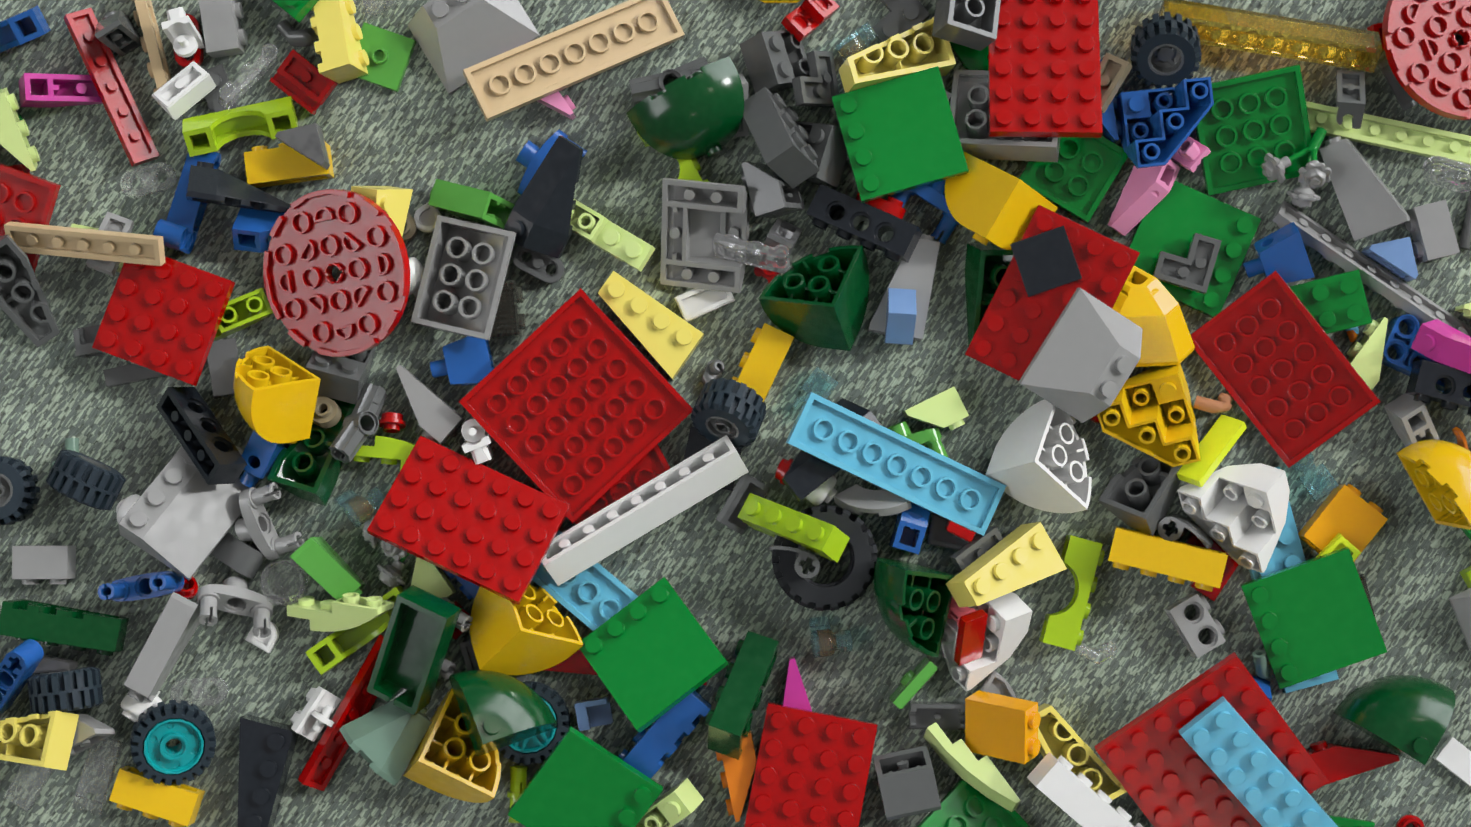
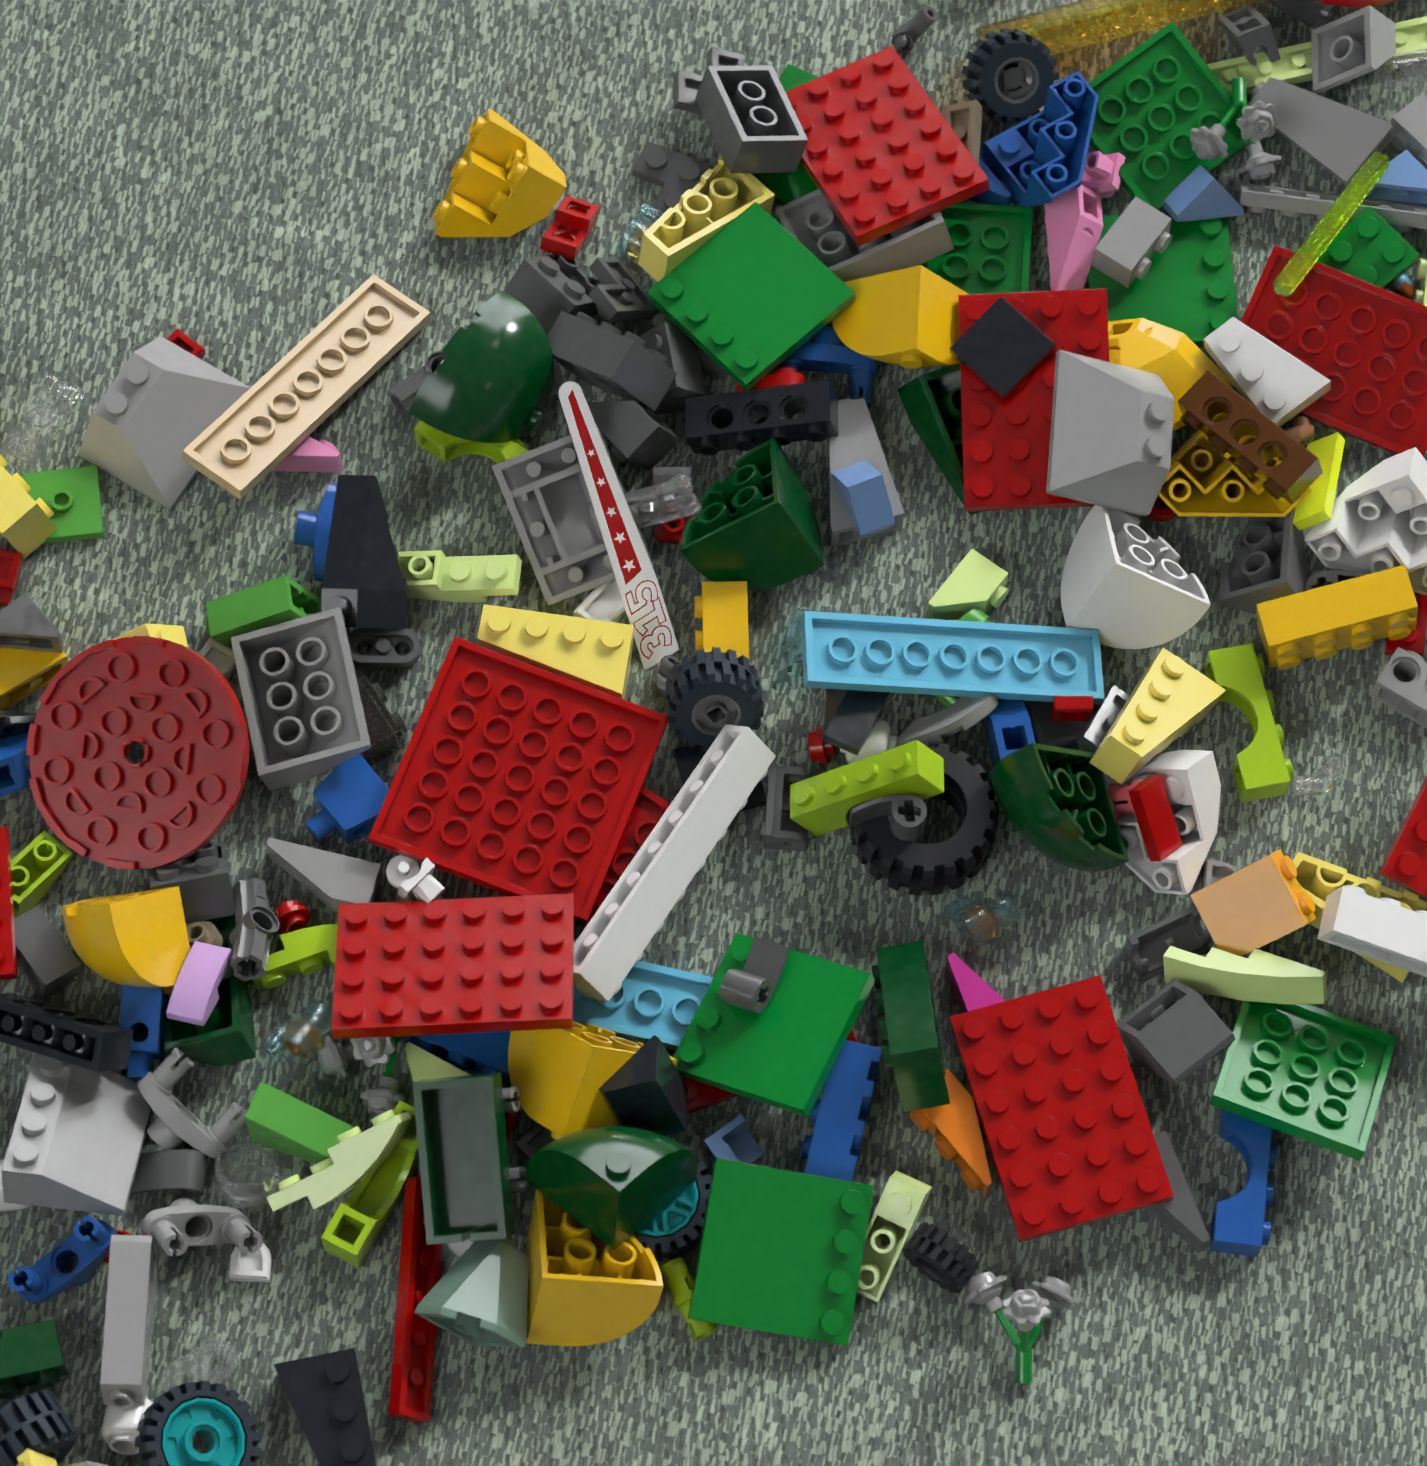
camera: 30 degrees left, 20 degrees down
(304, 448) = (197, 983): none -> lavender slope
(315, 714) = (372, 1317): white hips -> none
(552, 662) = (648, 1092): none -> black slope
(652, 625) = (757, 981): none -> dark grey panel
(725, 265) = (621, 537): none -> sticker
(912, 682) = (1113, 911): bright green plate -> none
(1169, 364) = (1212, 396): none -> reddish brown brick
(1182, 215) = (1132, 242): none -> light grey brick
(1194, 270) = (1180, 297): dark grey plate -> none
(1216, 359) = (1264, 372): none -> white wedge
(1248, 204) = (1201, 198): none -> medium blue slope
(1281, 252) = (1269, 224): blue torso -> none
(1322, 274) = (1330, 224): none -> clear neon green axle
(1413, 144) = (1351, 47): none -> light grey slope

